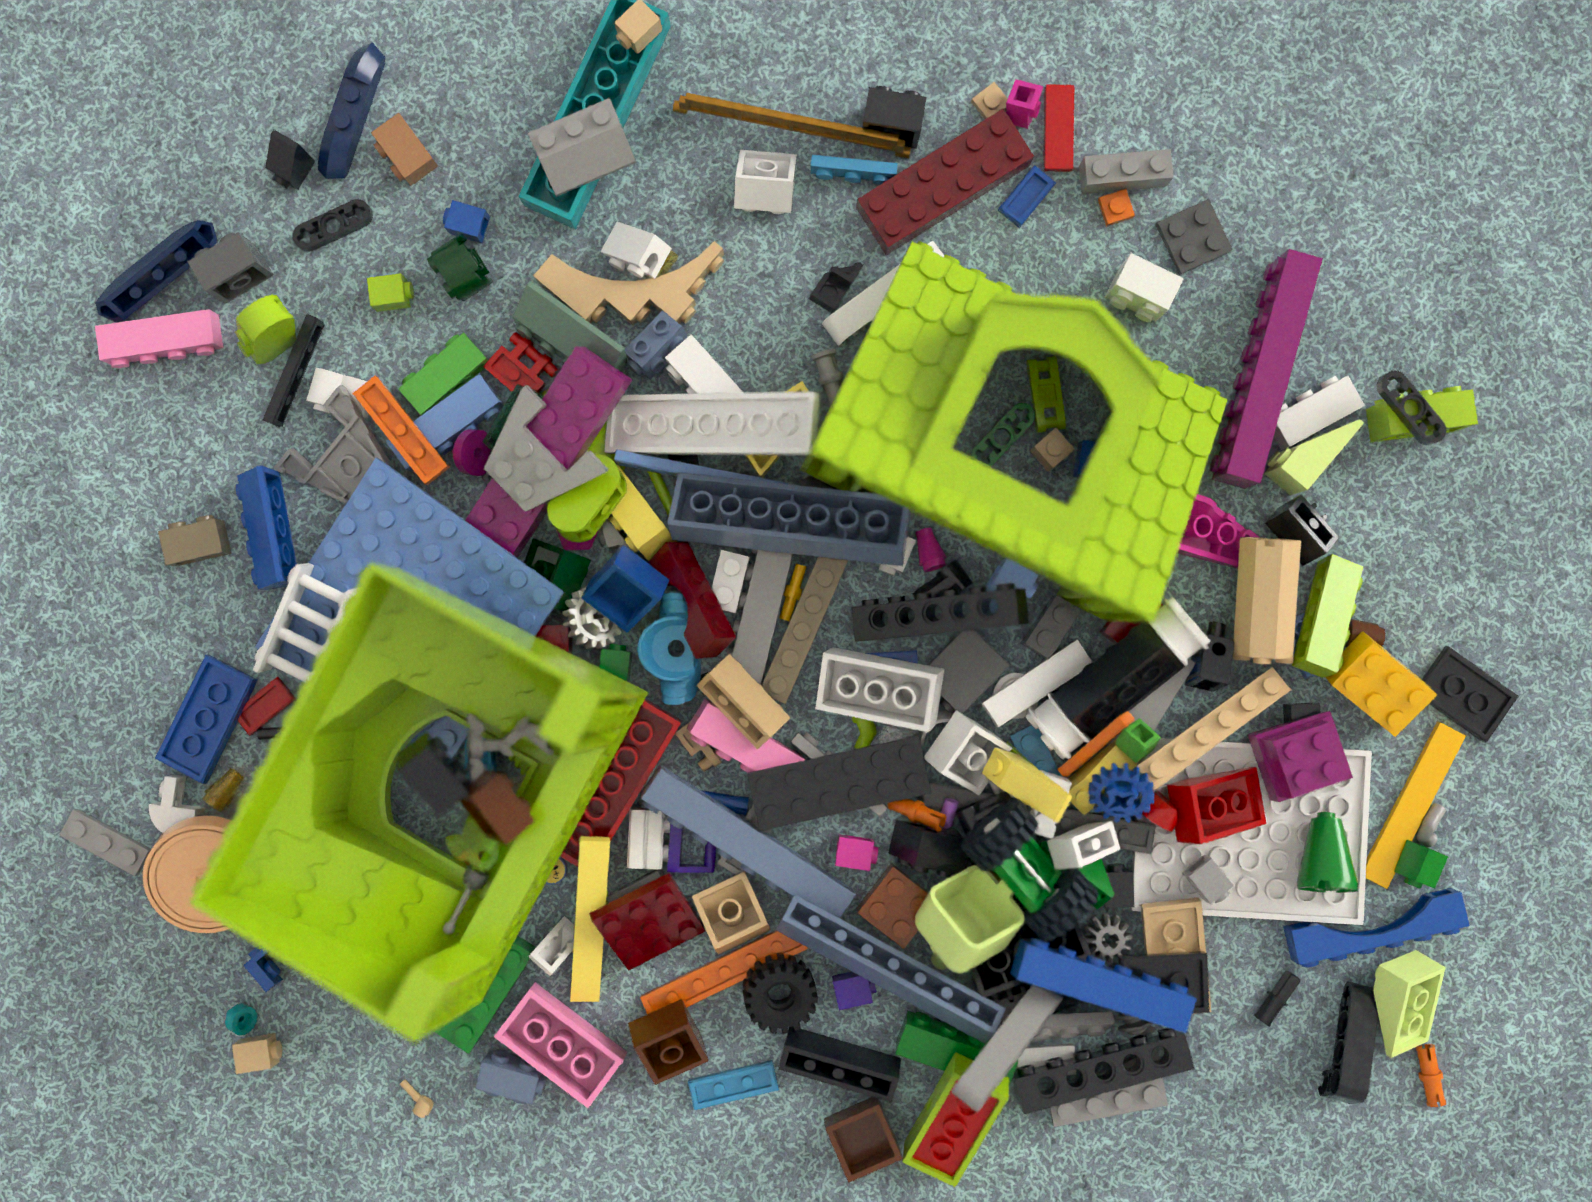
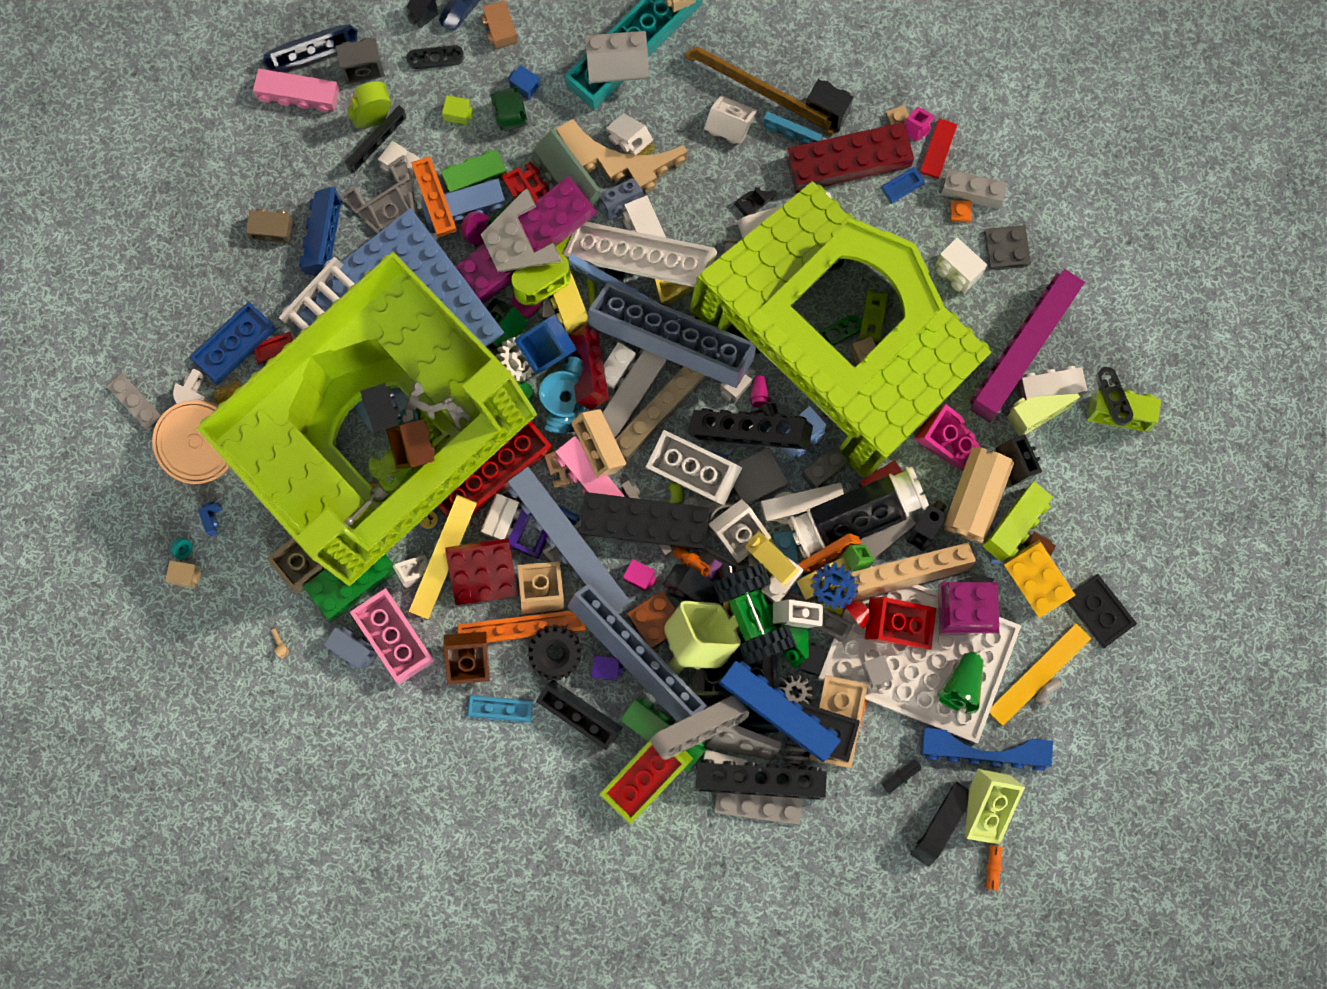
camera: 20 degrees right, 10 degrees down
(792, 592) = (657, 387): yellow bar -> none
(862, 1139) = (577, 771): reddish brown piece -> none
(1420, 865) = (1031, 714): green brick -> none

